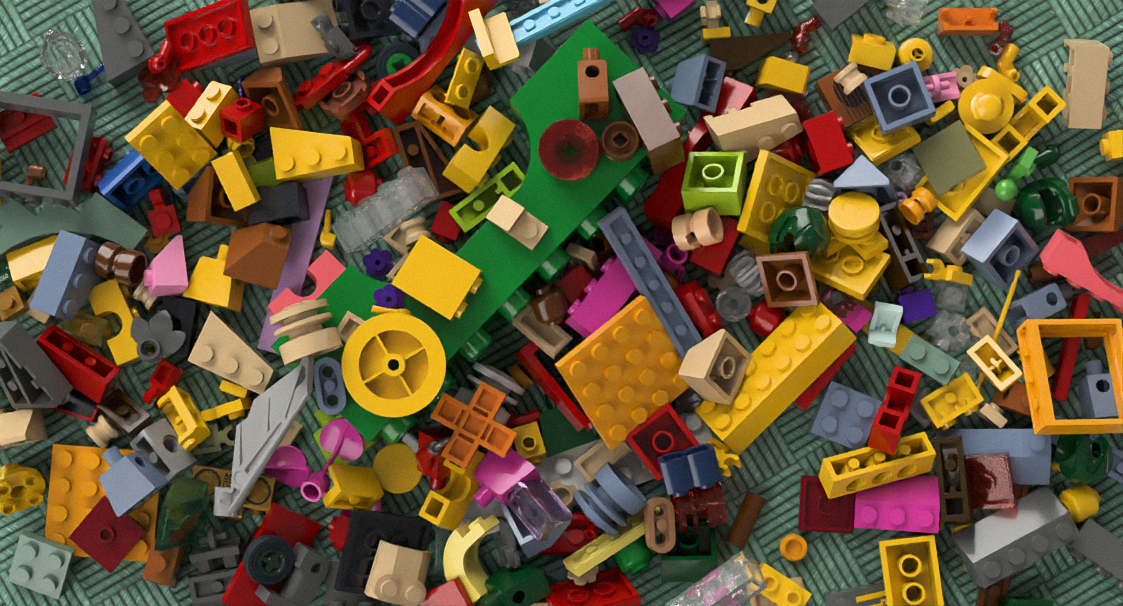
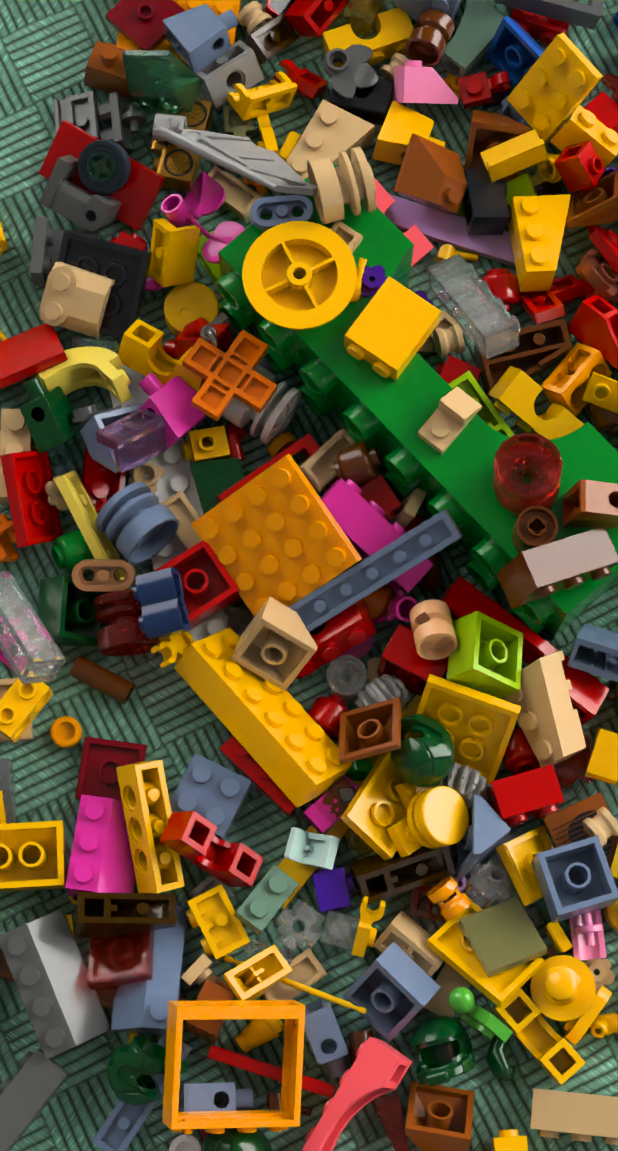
camera: 90 degrees right, 10 degrees down
(1080, 502) = (86, 1067): yellow head -> none

